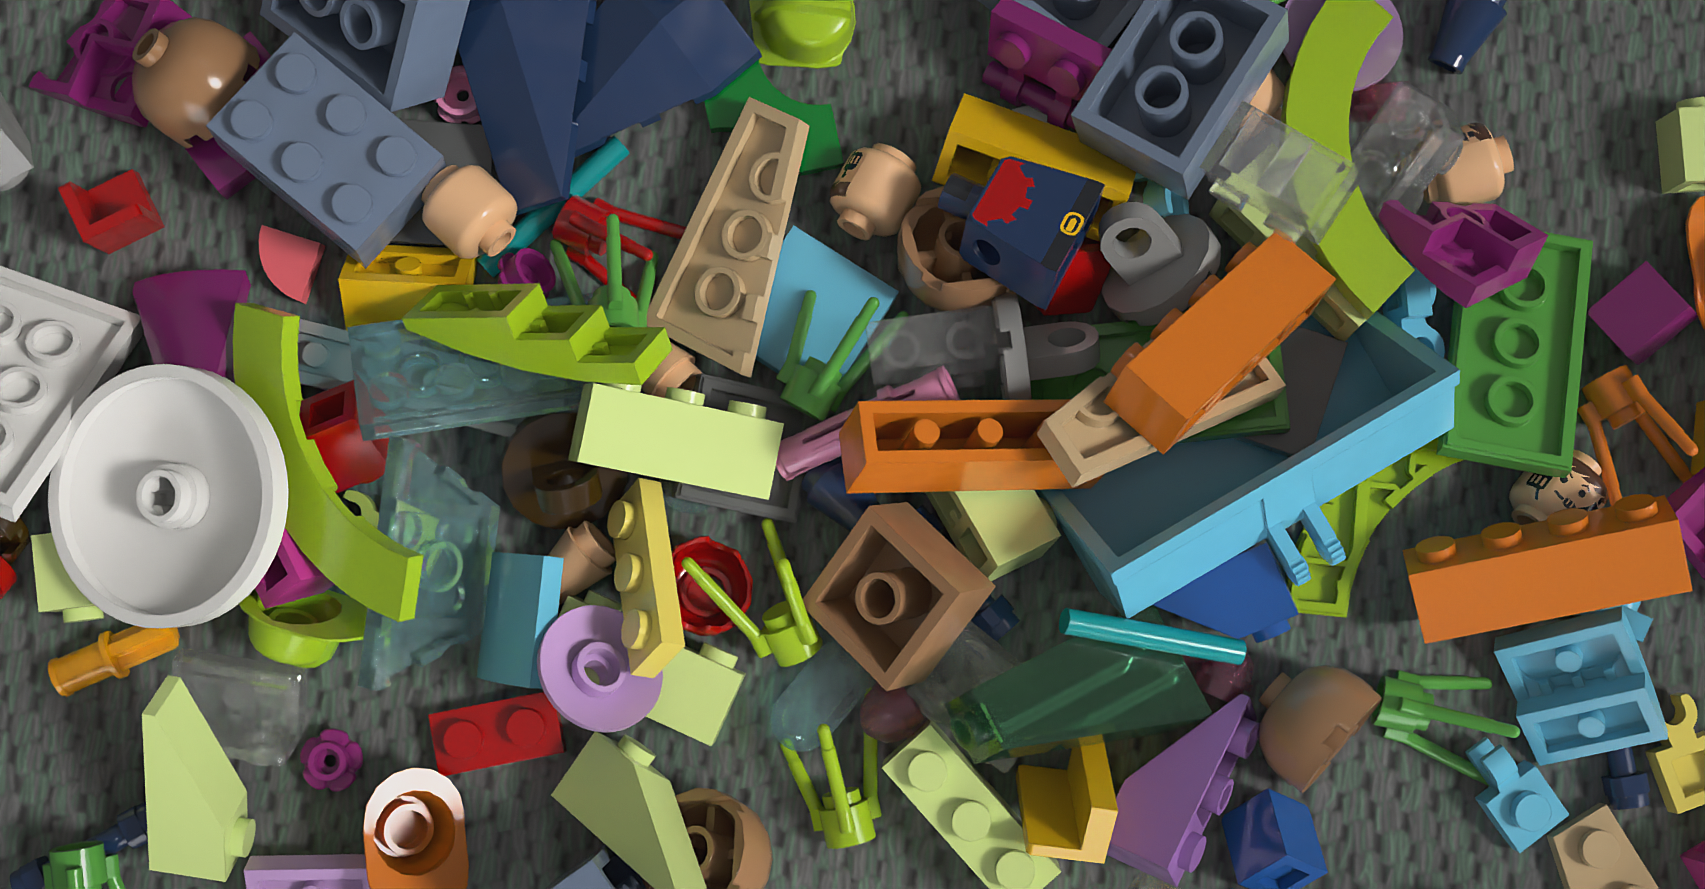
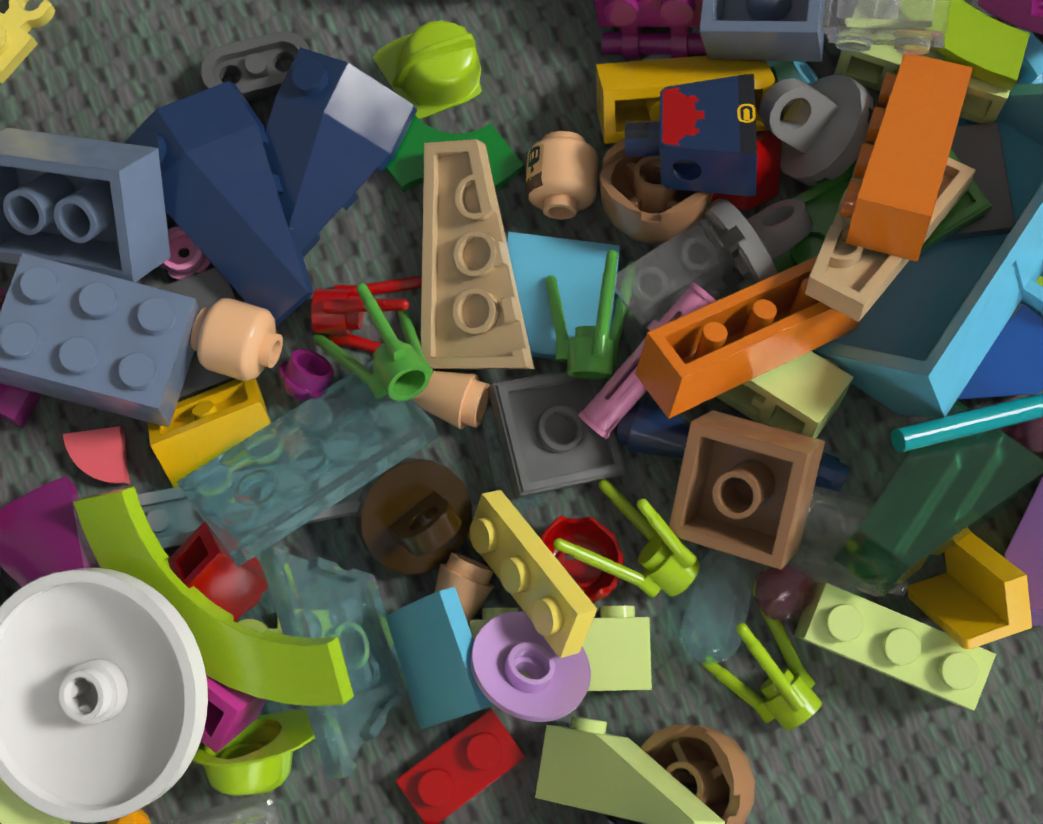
camera: 25 degrees left, 5 degrees down
(521, 331) = (333, 412): lime slope -> none
(539, 220) = (295, 323): teal bar -> none
(677, 438) = (501, 442): yellowish green brick -> none

